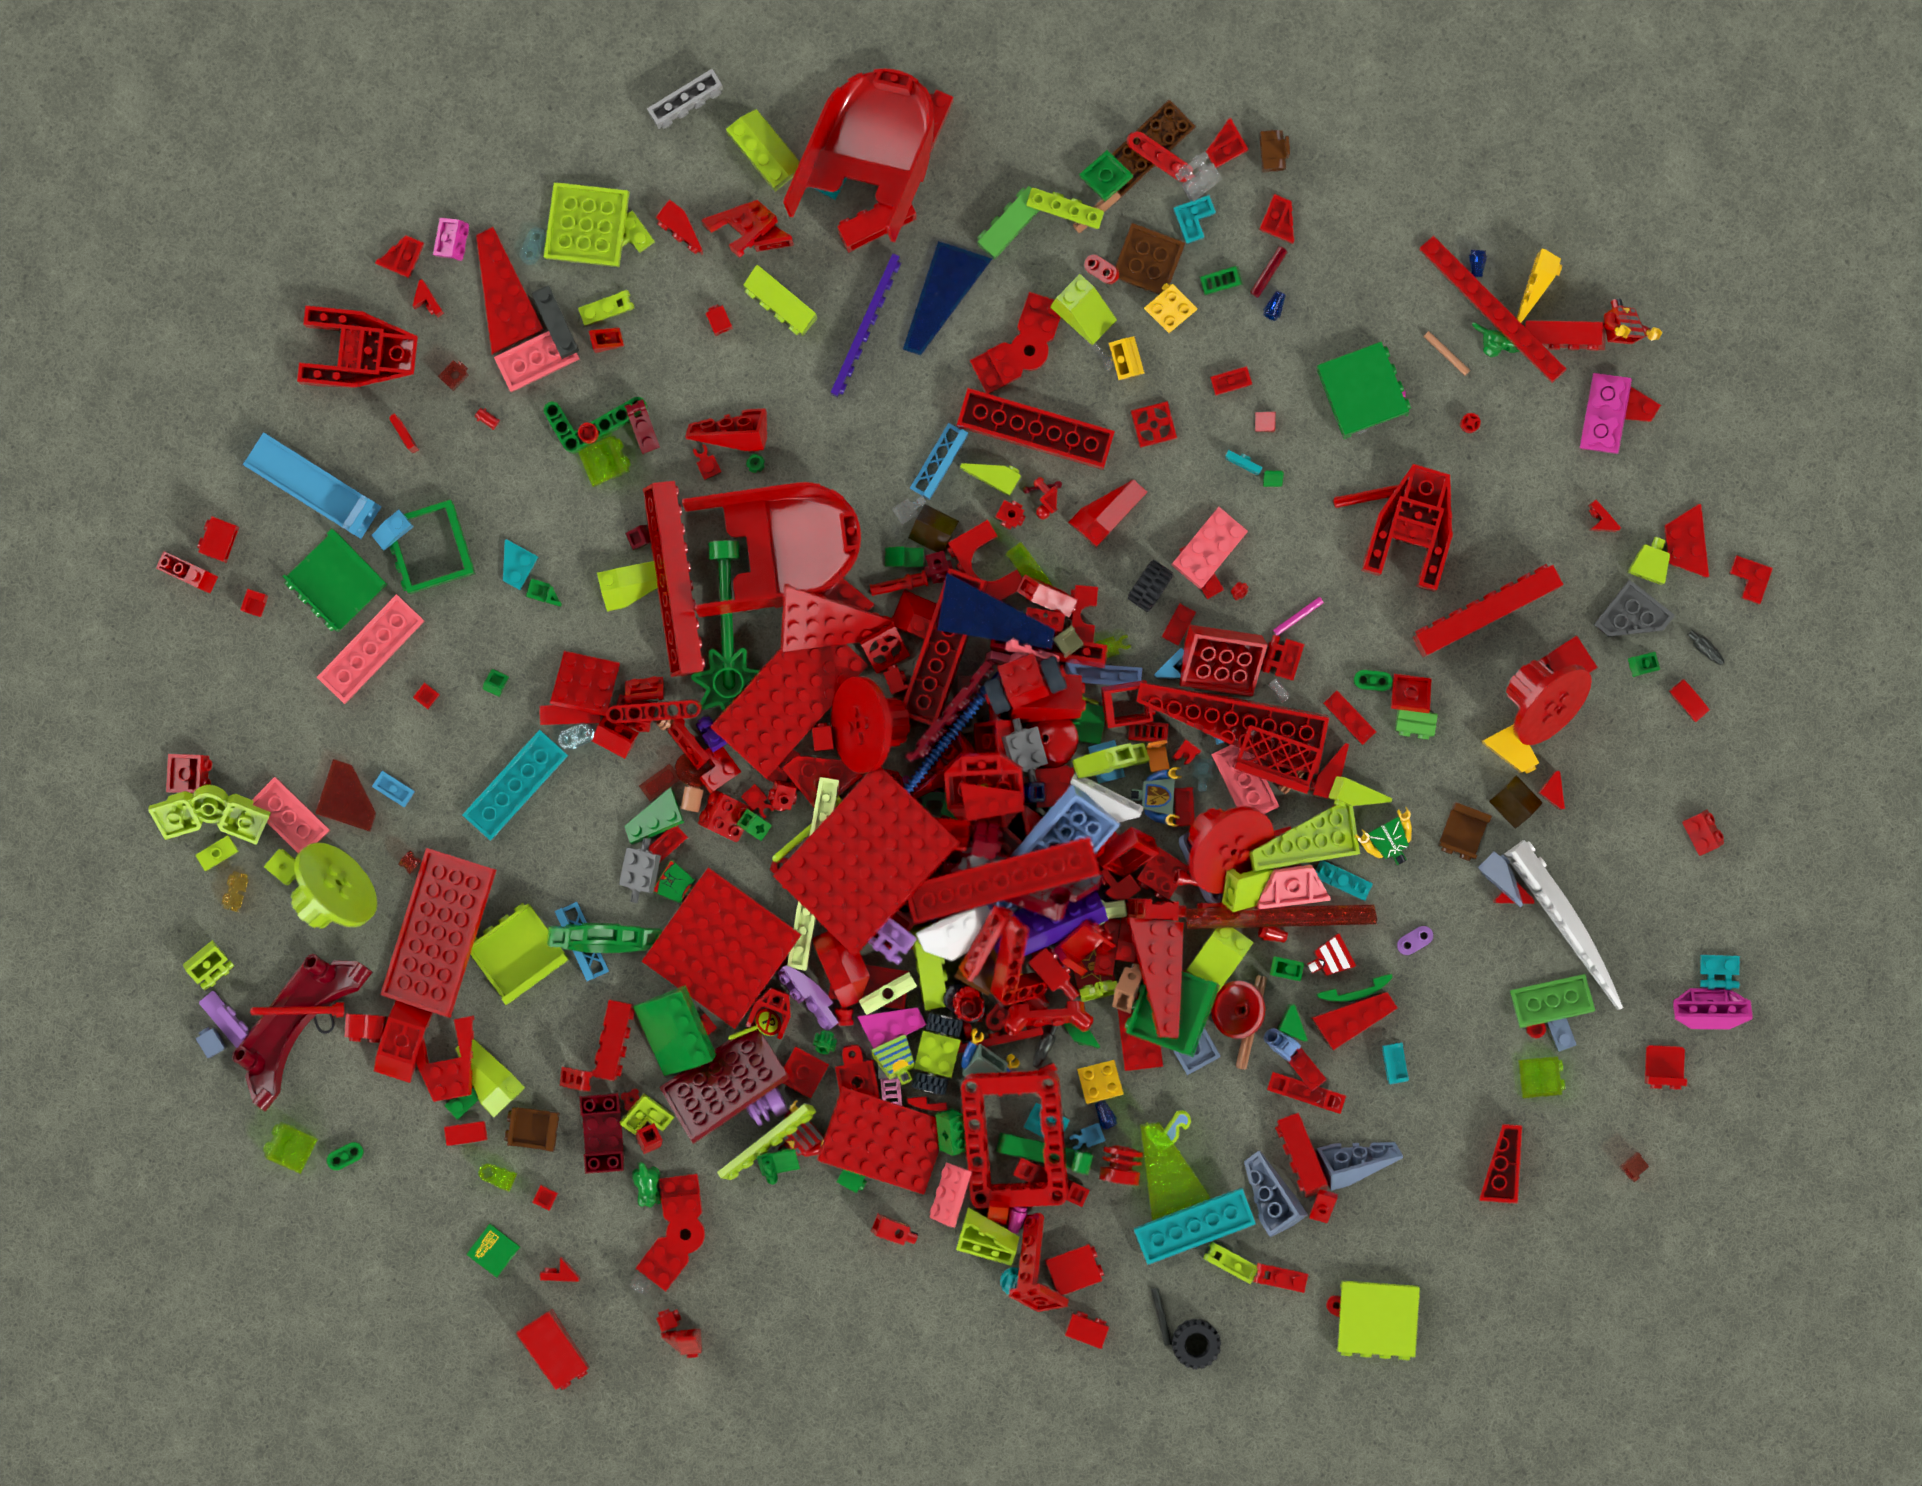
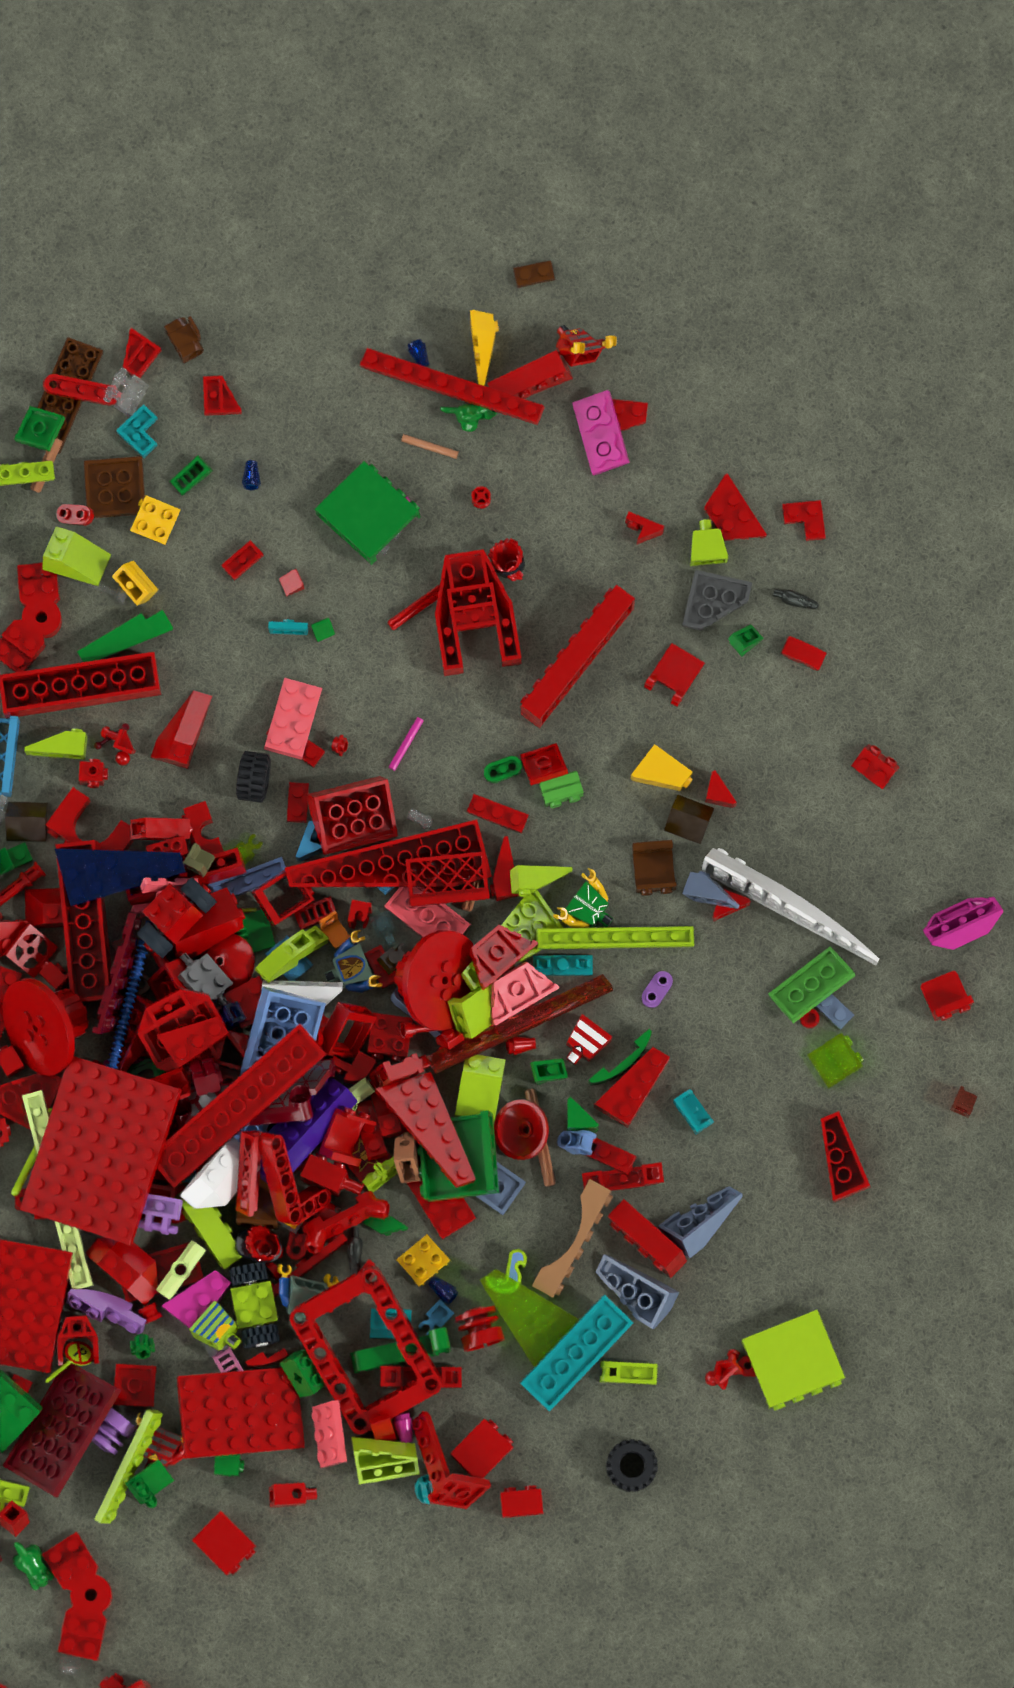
camera: 25 degrees left, 10 degrees down
(818, 1245) = (225, 1544): none -> red brick
(856, 1067) = (183, 1356): red plate -> none
(937, 567) = (45, 852): dark red brick -> none
(1025, 563) = (124, 809): clear neon green slope -> none
(1096, 402) = (126, 635): none -> green wedge
(1161, 1316) = (586, 1456): pearl dark grey bar -> none
(1164, 406) = (210, 634): red piece -> none
(1196, 805) = (390, 958): none -> dark brown plate
(1205, 1148) = (551, 1277): none -> medium nougat arch
(1213, 902) = (449, 1038): none -> red plate
(1268, 272) = (231, 448): dark red axle -> none
(1281, 1277) = (682, 1364): red plate -> none
(1288, 660) = (415, 786): red plate -> none
(1291, 848) = (498, 953): none -> red wing
(1314, 1300) = (724, 1369): none -> red piece
(1323, 1206) = (689, 1276): red plate -> none
(1400, 878) = (615, 937): none -> lime tile
(1467, 492) = (508, 559): none -> red hair
(1546, 699) = (671, 708): red piece -> none
(1616, 236) = (534, 274): none -> reddish brown plate
(1720, 966) = (950, 880): teal plate -> none

